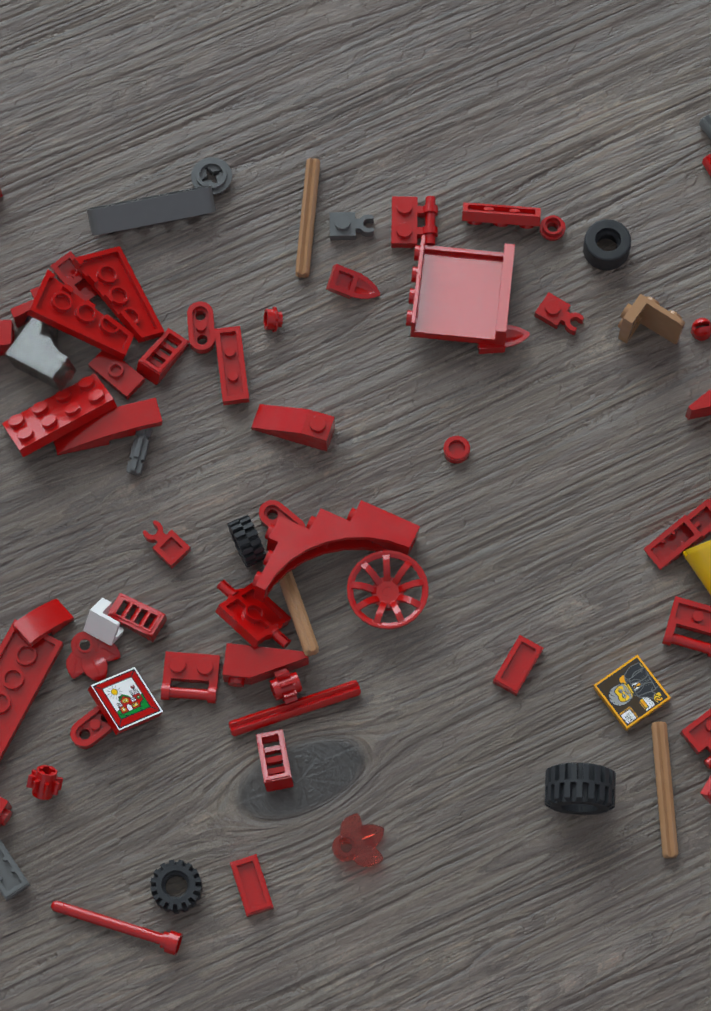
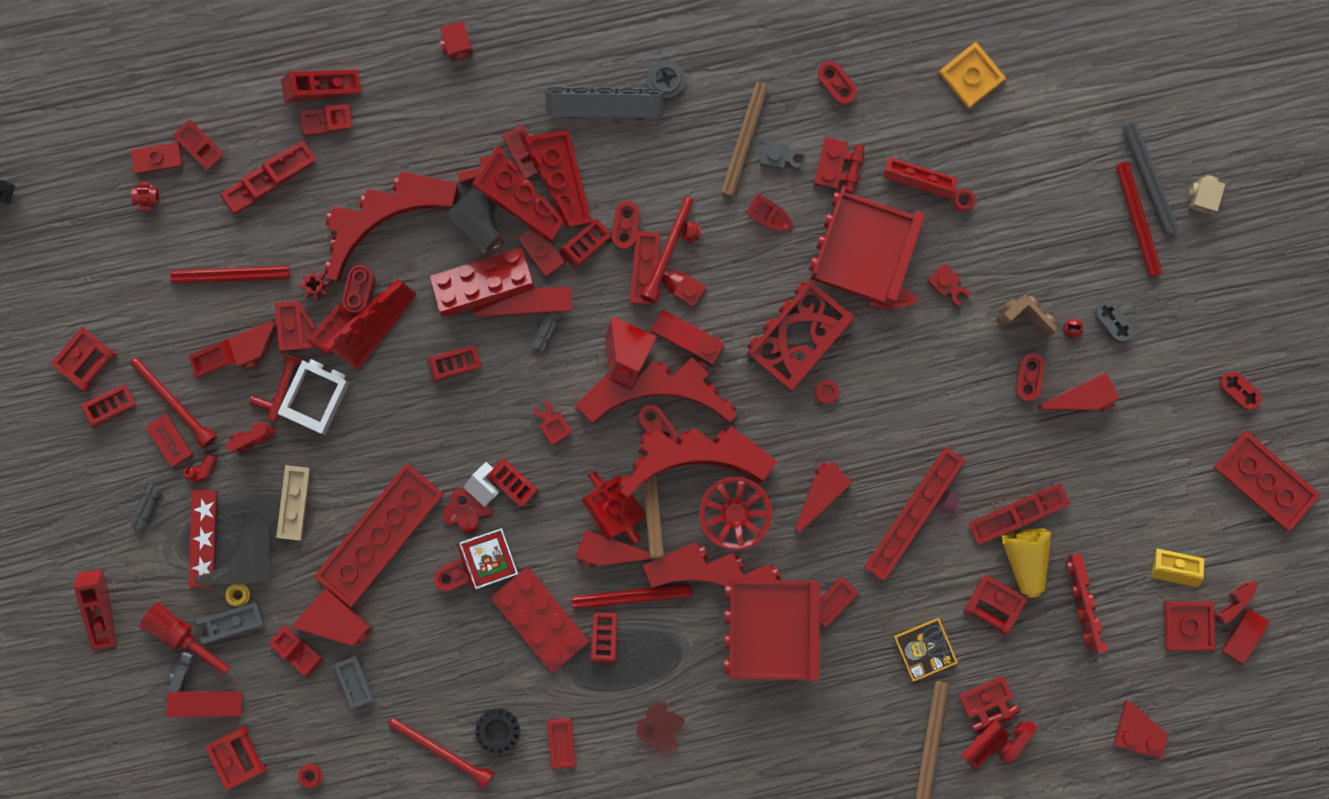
camera: 10 degrees right, 15 degrees up
(39, 520) = (436, 377): none -> red slope
(42, 621) = (430, 470): red slope -> none
(44, 782) = (403, 615): red gear -> none
(193, 669) = (550, 540): red plate -> none
(198, 755) = (539, 619): none -> red plate
(231, 447) = (627, 350): none -> red slope
(243, 384) = (650, 292): none -> red piece
(247, 541) = (622, 439): black tyre -> none
(276, 376) = (683, 286): none -> red plate
(285, 686) = (628, 578): red gear -> none
(304, 471) = (656, 382): none -> red arch
(391, 657) = (690, 565): none -> red arch
(392, 143) = (837, 83): none -> red plate
(418, 430) = (832, 328): none -> red fence
(458, 701) = (773, 629): none -> red panel
(479, 545) = (823, 490): none -> red slope
(529, 107) = (972, 75): none -> light orange tile
(580, 788) = (859, 731): black tyre -> none
(582, 552) = (914, 513): none -> red plate
(607, 230) = (1008, 214): black tyre -> none
(617, 531) = (949, 502): none -> clear pink plate
(669, 387) = (1030, 377): none -> red plate

